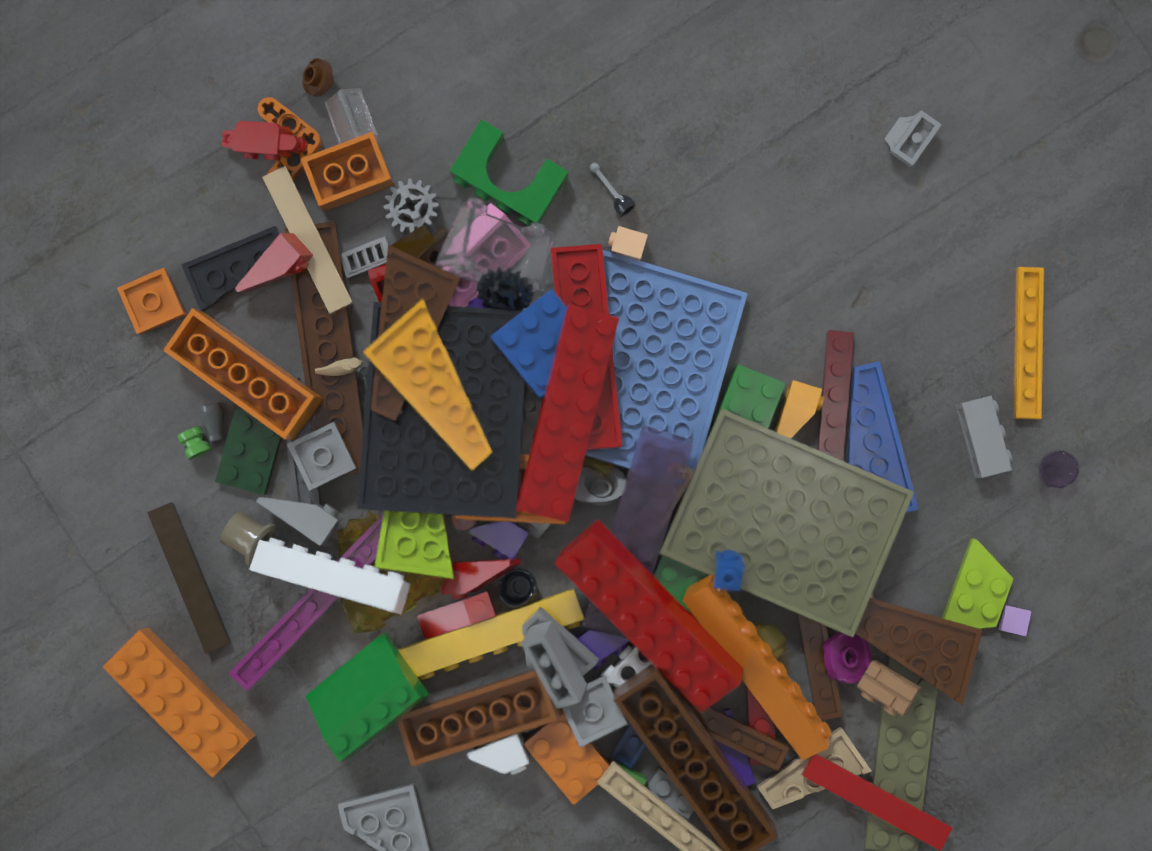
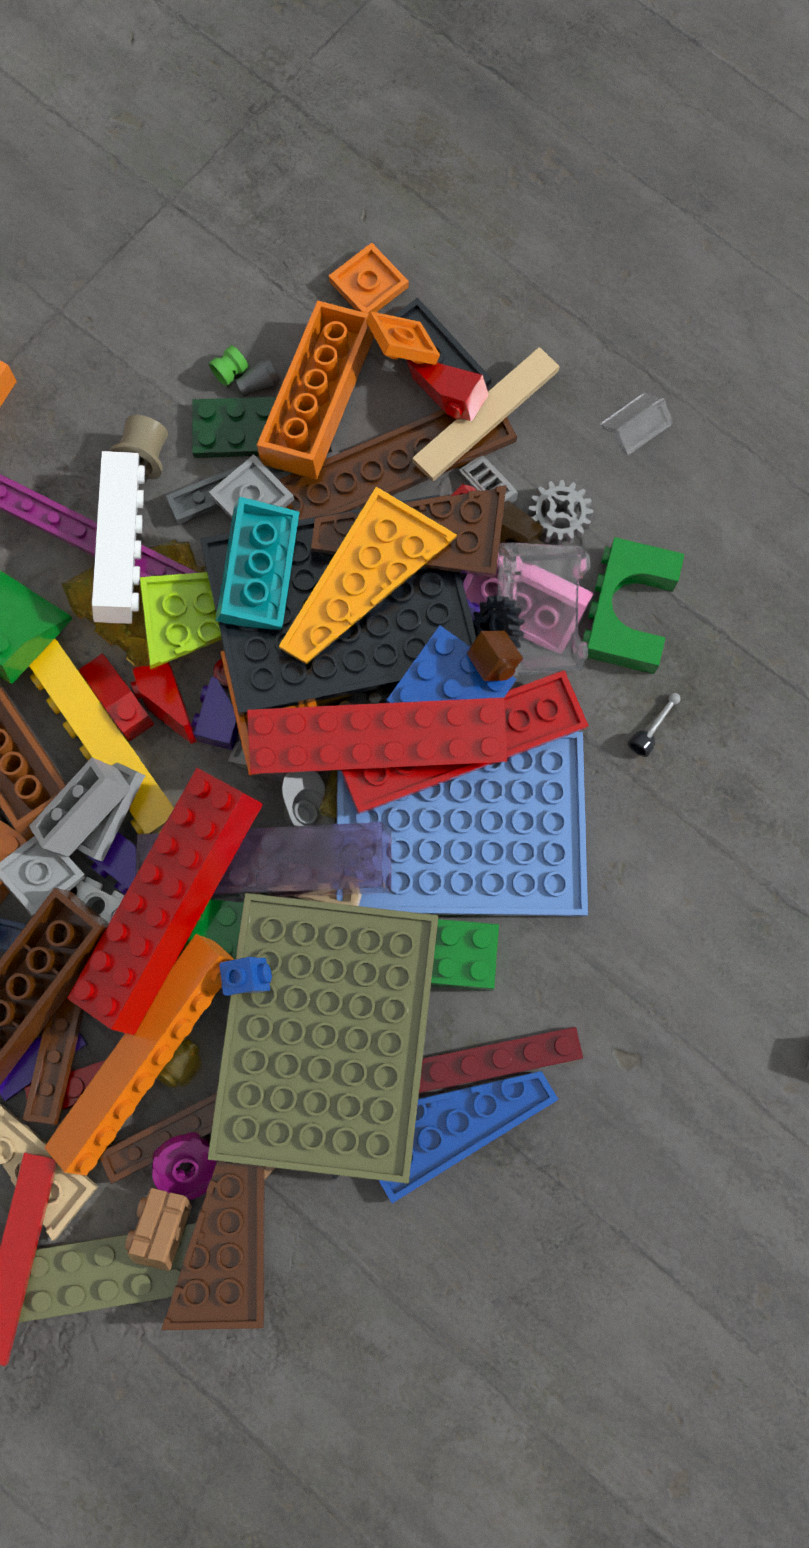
camera: 75 degrees right, 10 degrees down
(189, 577) = (80, 405): dark brown tile -> none
(223, 289) = (402, 338): none -> orange plate
(263, 139) = (580, 338): red hinge -> none
(302, 130) = (595, 374): orange beam -> none
(310, 519) = (176, 504): light grey slope -> none
(317, 77) = (668, 374): reddish brown plate -> none
(340, 367) = (355, 486): tan bar -> none
(347, 171) = (575, 432): orange brick -> none
(395, 467) = (257, 565): none -> teal slope
(517, 588) = (162, 752): black hair -> none
(532, 300) = (494, 655): none -> reddish brown brick
(627, 243) = (599, 760): light nougat brick -> none
(798, 407) = (469, 1016): light orange slope -> none
(978, 589) = (313, 1313): lime wing -> none
(984, 437) = (507, 1262): light grey brick -> none
(1014, 620) = (289, 1373): lavender tile -> none
(1028, 343) = (641, 1286): light orange tile -> none
(1058, 469) = (495, 1371): clear purple hair -> none

